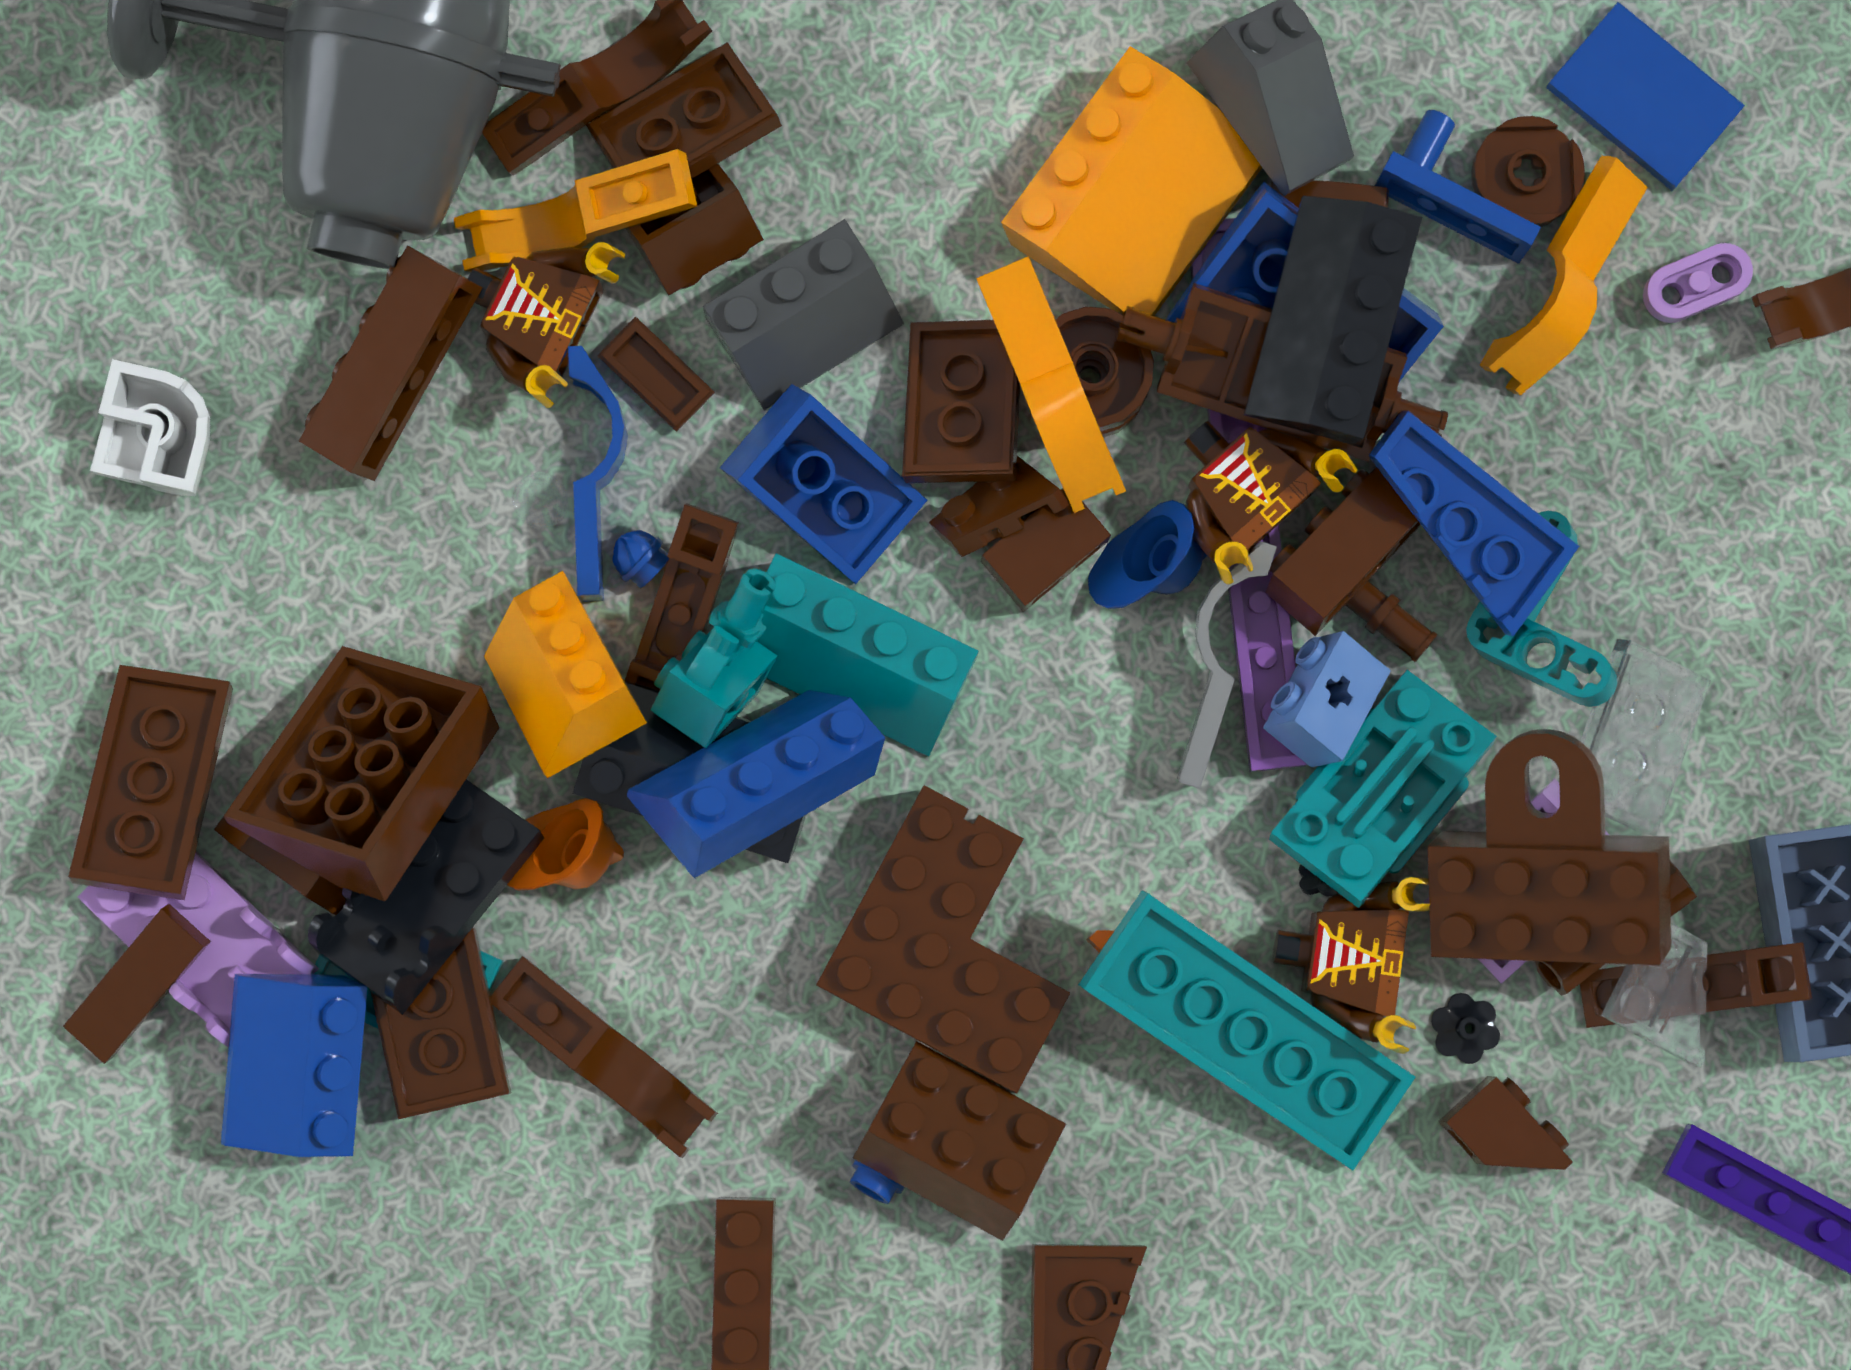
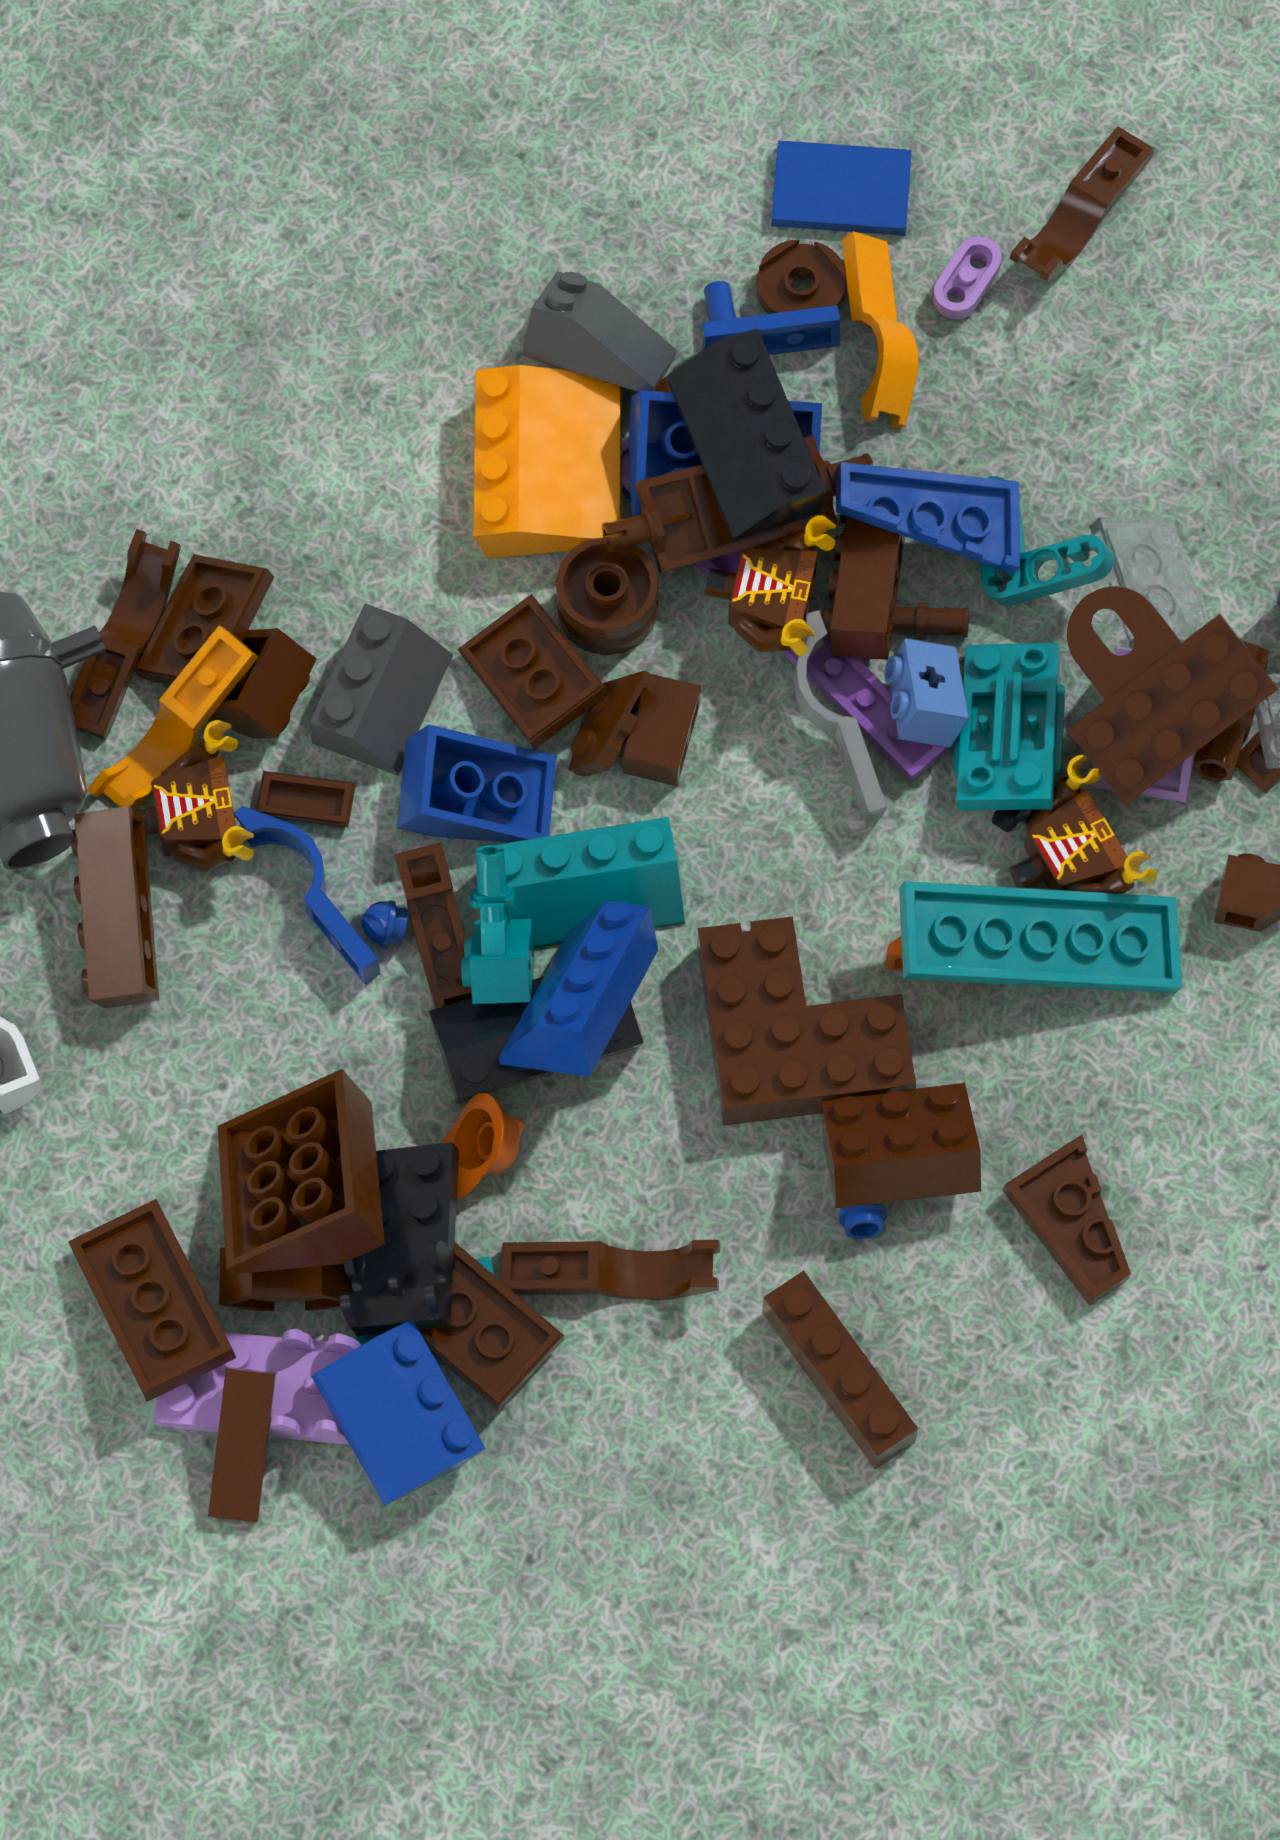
camera: 30 degrees left, 15 degrees down
(560, 676) = (391, 1026): light orange slope -> none
(1050, 382) = (587, 607): light orange piece -> none
(1147, 558) = (737, 686): blue piece -> none
(1450, 1026) = (1184, 858): black plant -> none

